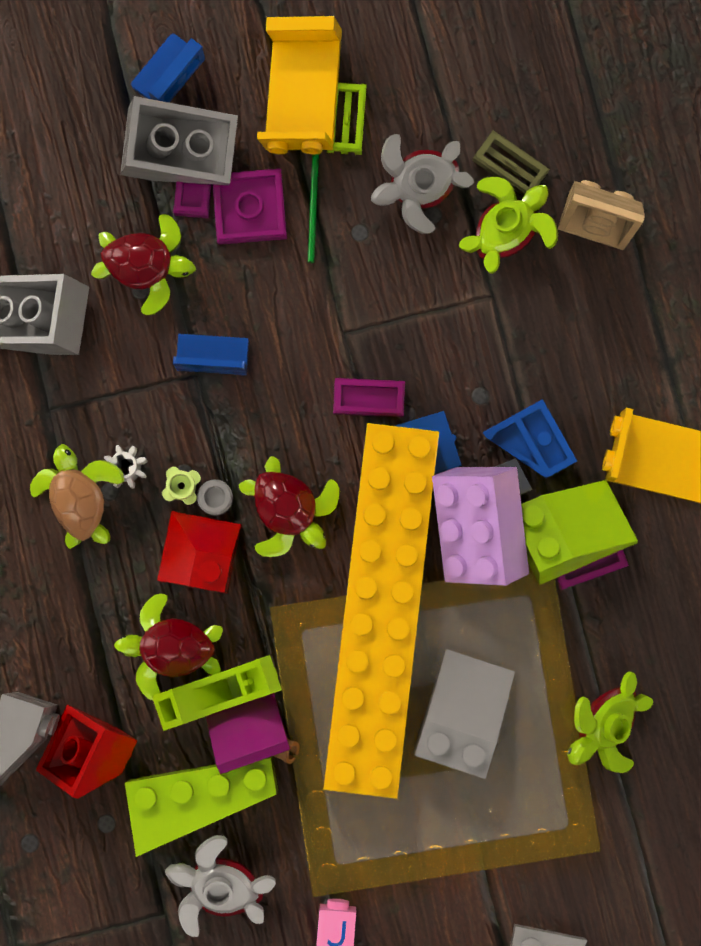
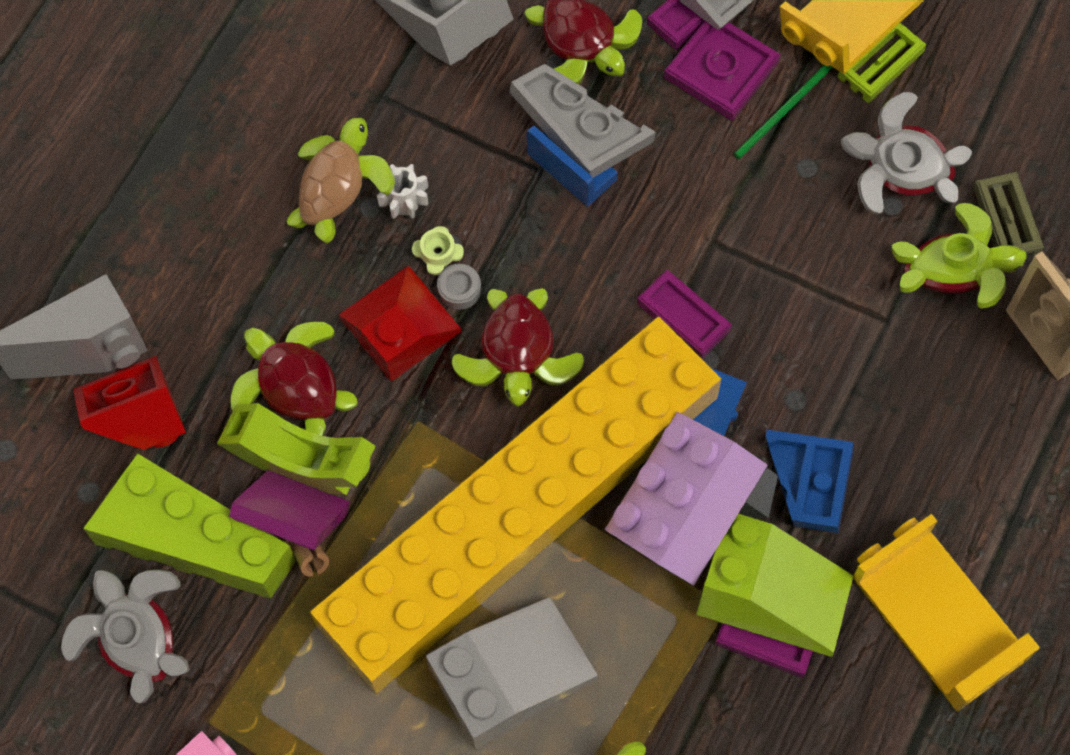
camera: 45 degrees right, 15 degrees down
(199, 328) = (576, 123): none -> light grey wing

